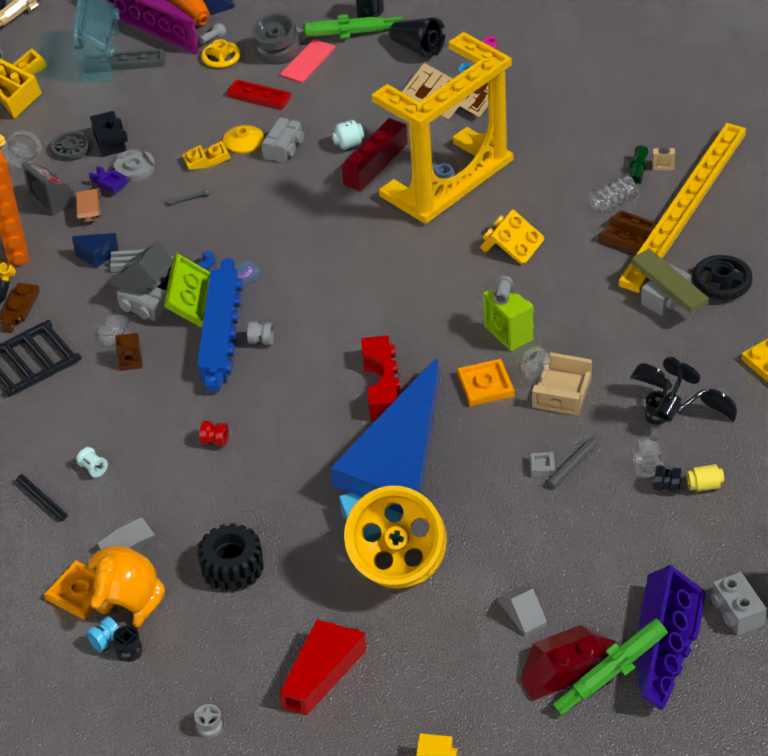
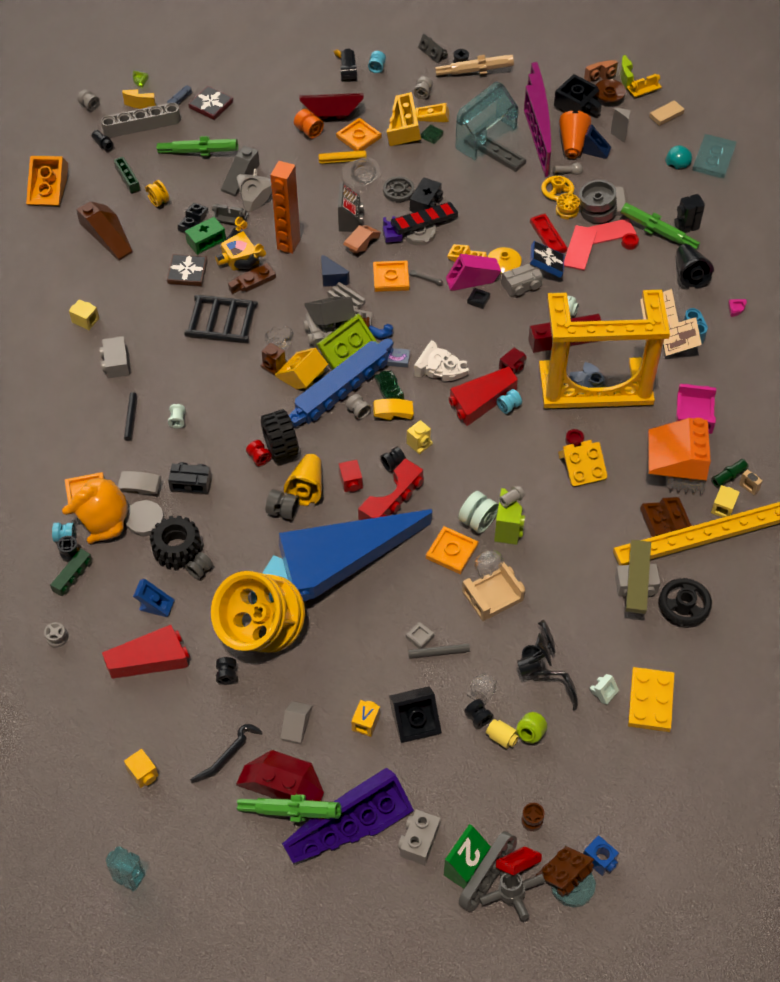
camera: 40 degrees right, 10 degrees up
(47, 83) = (432, 134): none -> clear green tile
(129, 149) = (424, 218): none -> black tile
(153, 216) = (391, 276): none -> light orange tile
(155, 665) = (71, 572): none -> dark green piece
(167, 340) = (302, 368): none -> yellow slope
(171, 563) = (143, 516): none -> light grey tile
(173, 500) = (190, 478): none -> black brick
(222, 398) = (279, 434): none -> black tyre
(230, 162) = (472, 271): none -> dark pink slope
(249, 60) = (567, 206): none -> yellow wheel
(259, 181) = (478, 298): none -> black tile
(264, 301) = (388, 385): none -> clear green slope
(267, 619) = (153, 599): none -> blue slope
(276, 560) = (199, 565): none -> dark grey wheel
(287, 109) = (547, 259): none -> tile
(292, 251) = (440, 364): none -> white piece
(292, 314) = (393, 407): none -> yellow slope
(292, 421) = (306, 480): none -> yellow cone
(298, 449) = (282, 504): none -> dark grey wheel
(300, 86) = (580, 247): none -> coral piece
(324, 390) = (350, 476): none -> red brick
(337, 54) = (630, 241): none -> red tile
(346, 350) = (392, 459): none -> black wheel
(348, 317) = (419, 437): none -> light yellow brick
(357, 207) = (513, 359): none -> dark red brick
(360, 248) = (481, 394): none -> red slope
(391, 237) = (510, 400): none -> medium azure wheel
(412, 620) = (226, 670): none -> black wheel
(477, 332) = (478, 511): none -> light aqua wheel
(479, 227) = (574, 437): none -> dark red tile
(494, 677) = (228, 753): none -> black piece
(552, 139) = (696, 402): none -> dark pink panel
(580, 556) = (365, 717): none -> yellow brick
(585, 168) = (680, 449): none -> orange slope
(617, 519) = (415, 714): none -> black slope
(662, 186) = (725, 501): none -> light yellow brick
(723, 453) = (531, 727): none -> lime head
(740, 384) = (605, 689): none -> light aqua tile

